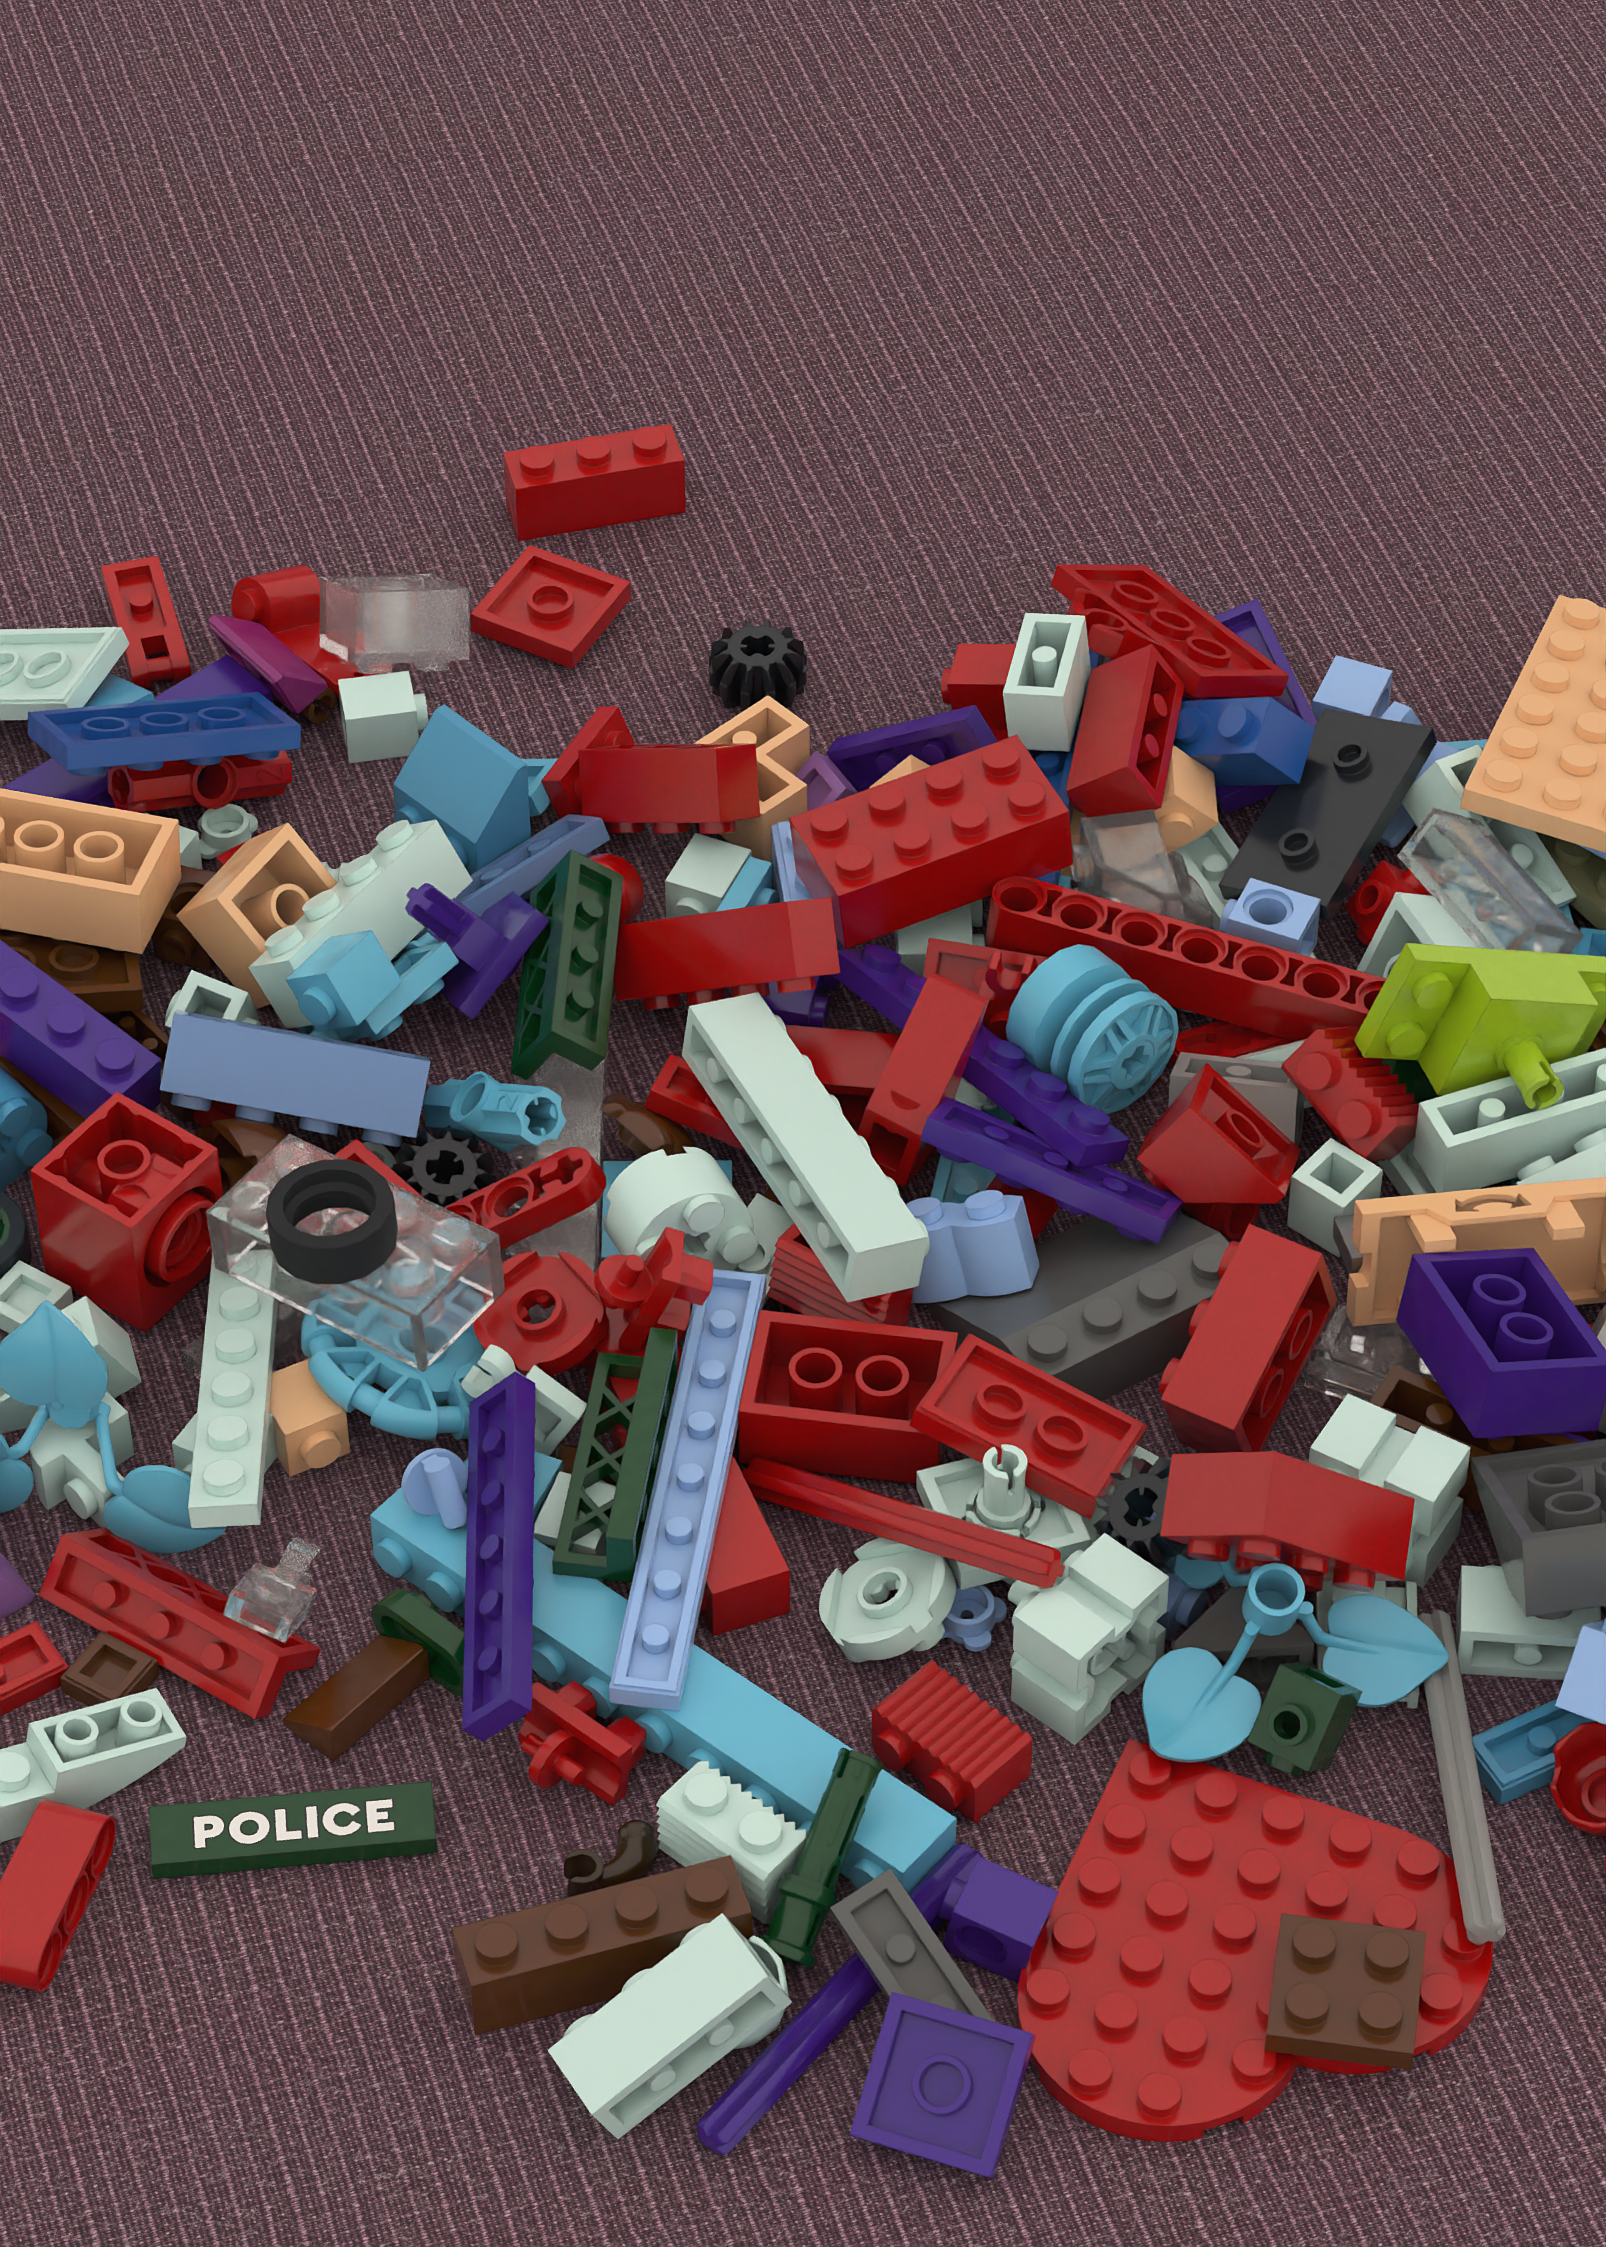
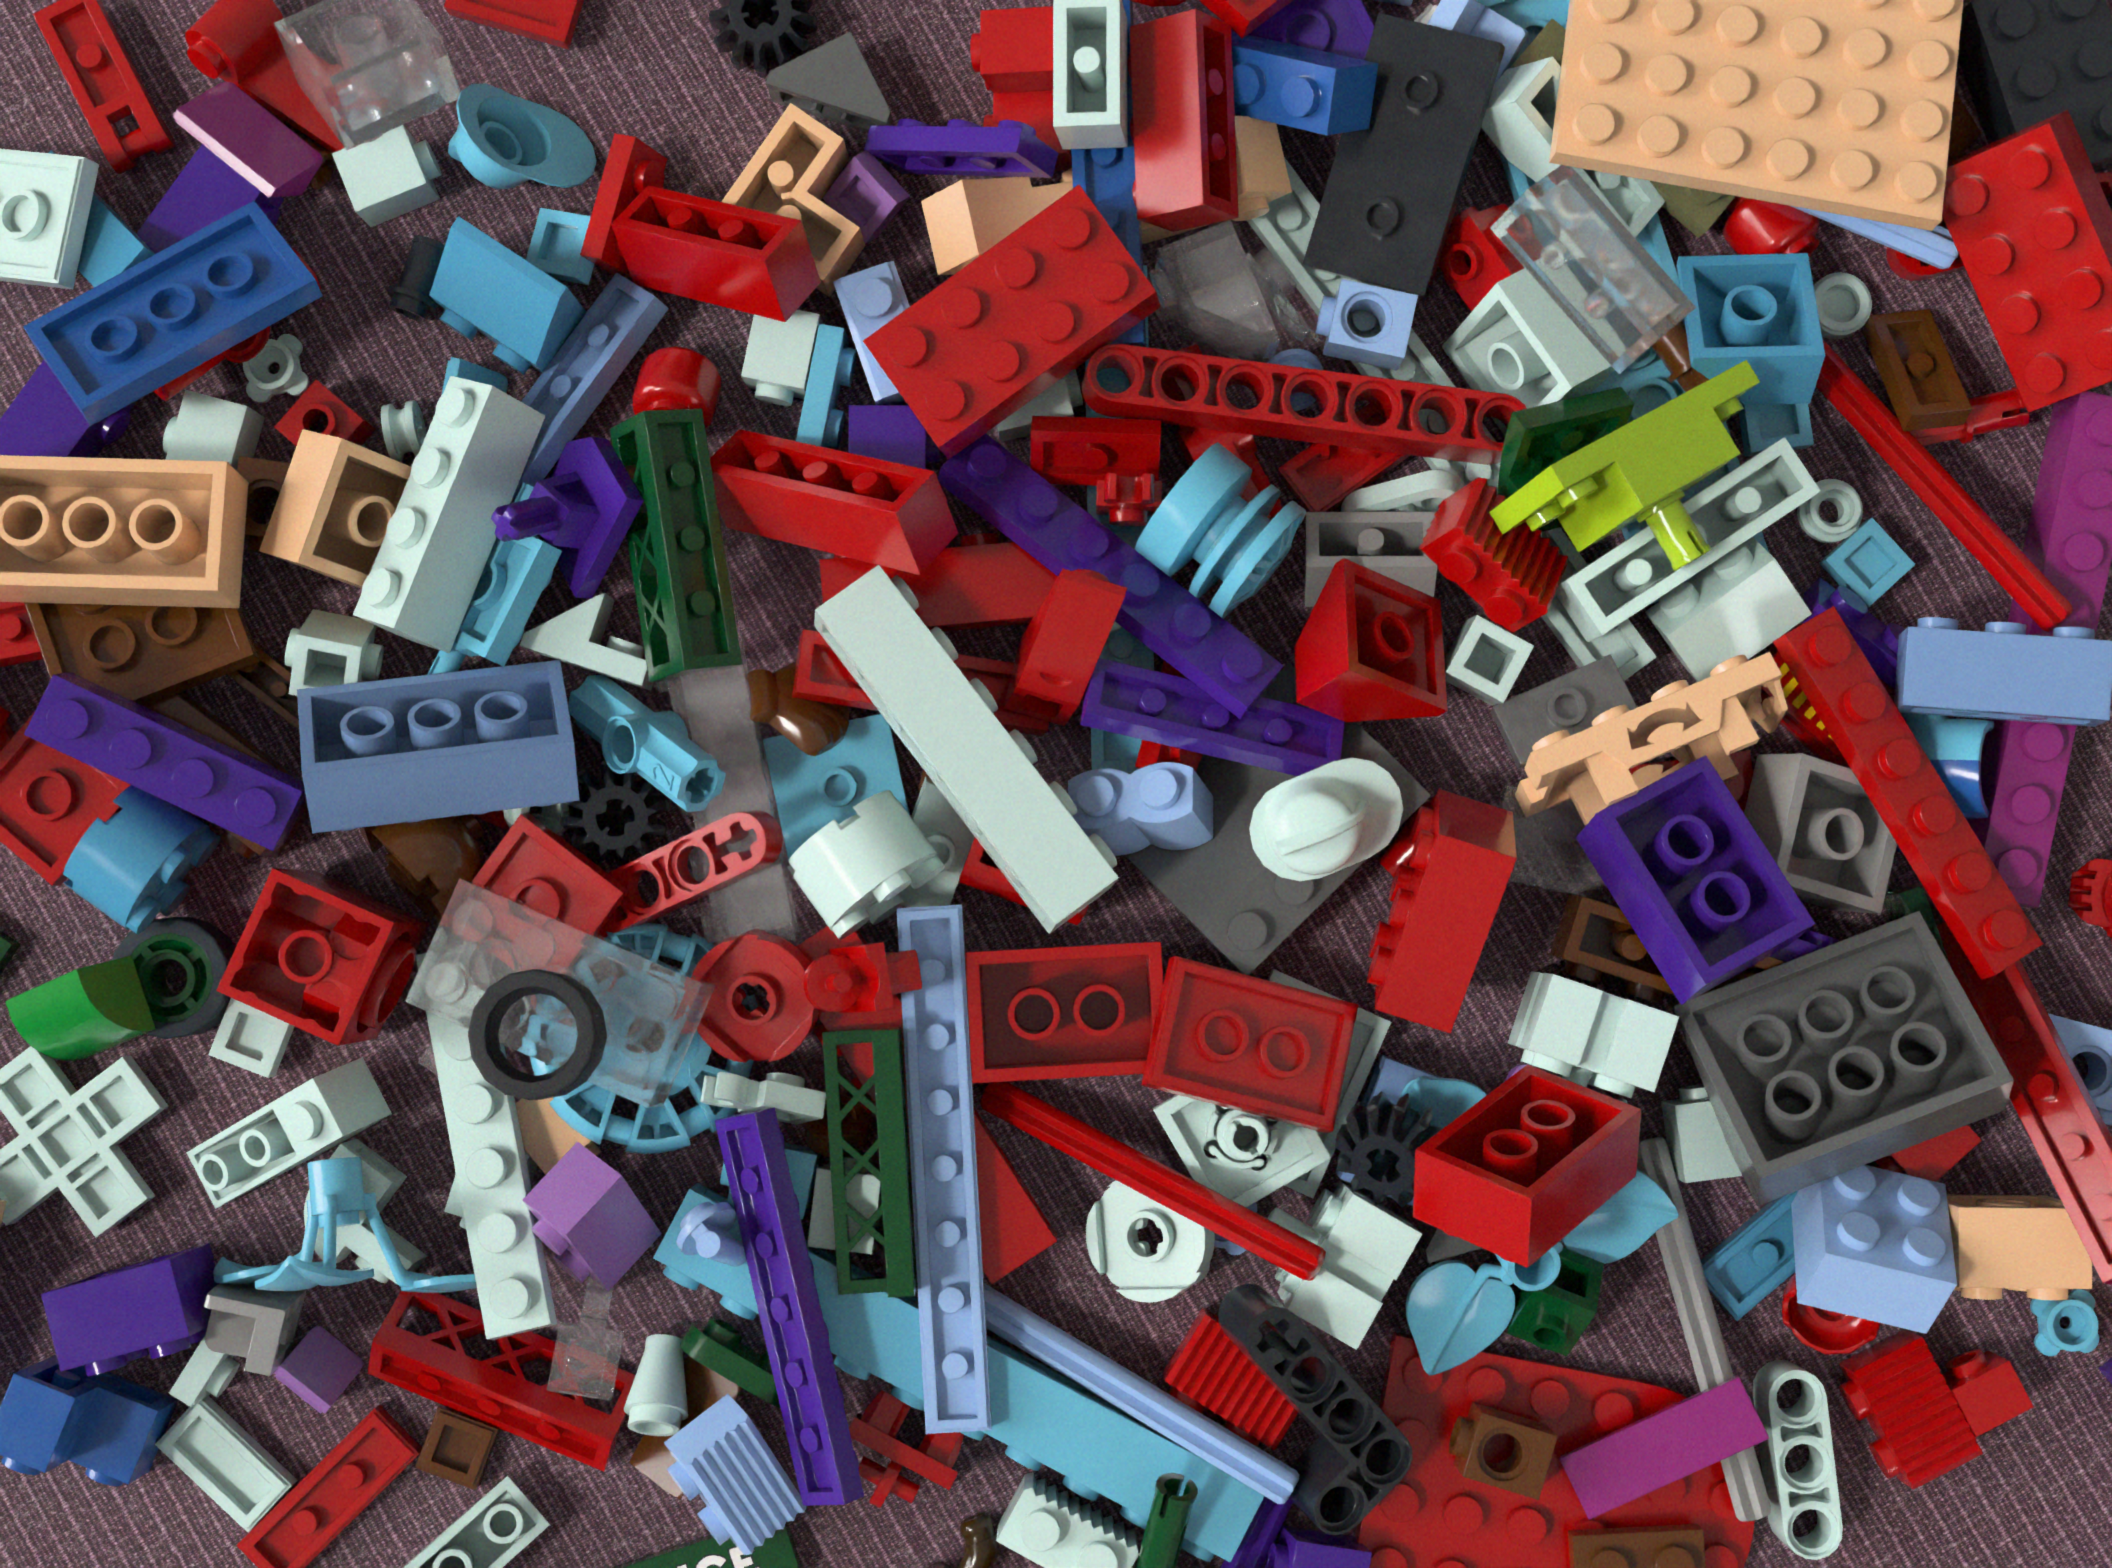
camera: 10 degrees left, 40 degrees up
(321, 1460) = (590, 1218): none -> medium lavender brick
(336, 1644) = (659, 1389): none -> light aqua cone
(343, 981) = (455, 631): medium azure brick -> none
(374, 800) = (412, 292): none -> black pin
(395, 1706) = (734, 1475): none -> light blue brick
(455, 1048) = (576, 640): none -> light aqua slope
(501, 706) = (517, 140): none -> medium azure piece
(815, 700) = (832, 85): none -> dark grey slope
(901, 1758) = (1139, 1398): none -> light blue axle
(1015, 1714) = (1358, 1445): none -> black beam
(1144, 1256) = (1326, 819): none -> light aqua piece
(1225, 1842) = (1525, 1467): none -> reddish brown brick
(1395, 1845) = (1664, 1447): none -> magenta tile
(1539, 1941) = (1816, 1483): none -> light aqua beam

